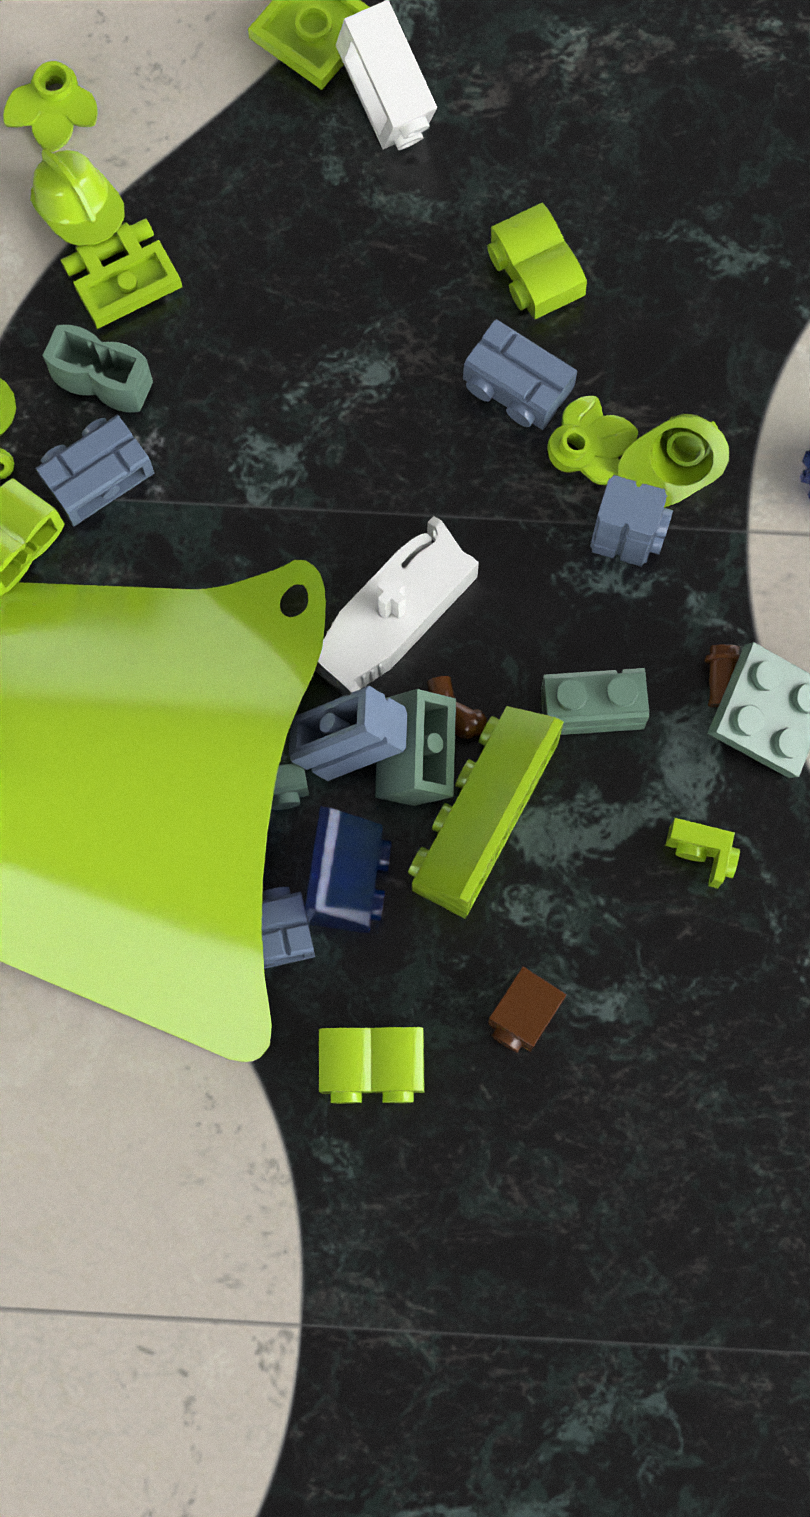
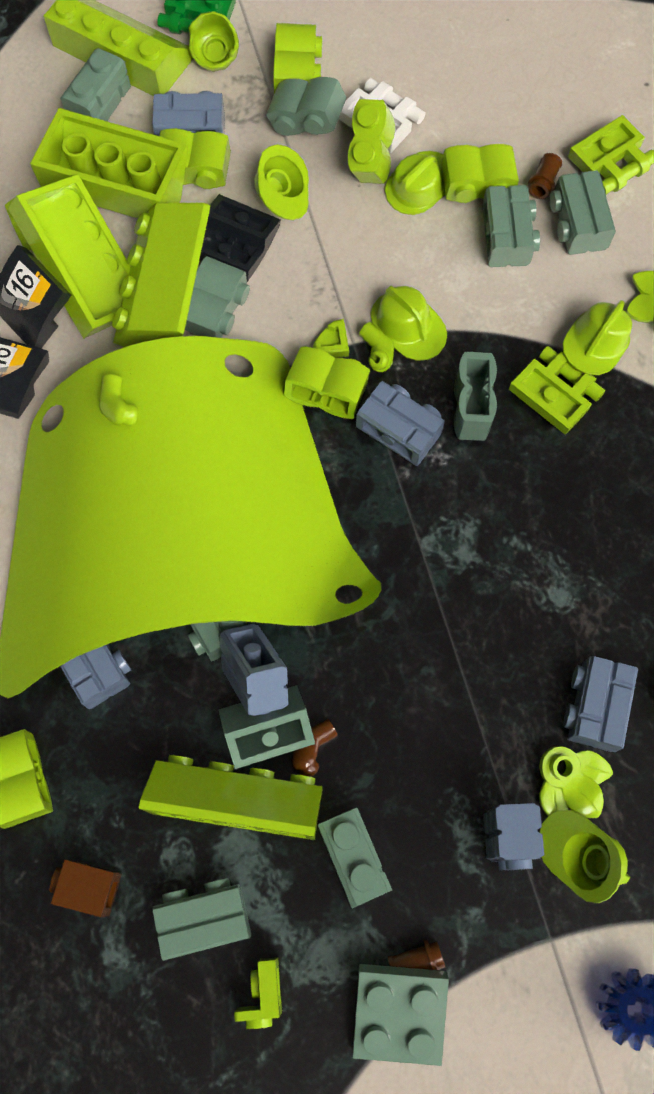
camera: 70 degrees right, 5 degrees down
(346, 872) = (149, 706): clear blue slope -> none
(395, 609) = (373, 673): white piece -> none
(605, 890) = (201, 920): none -> sand green brick

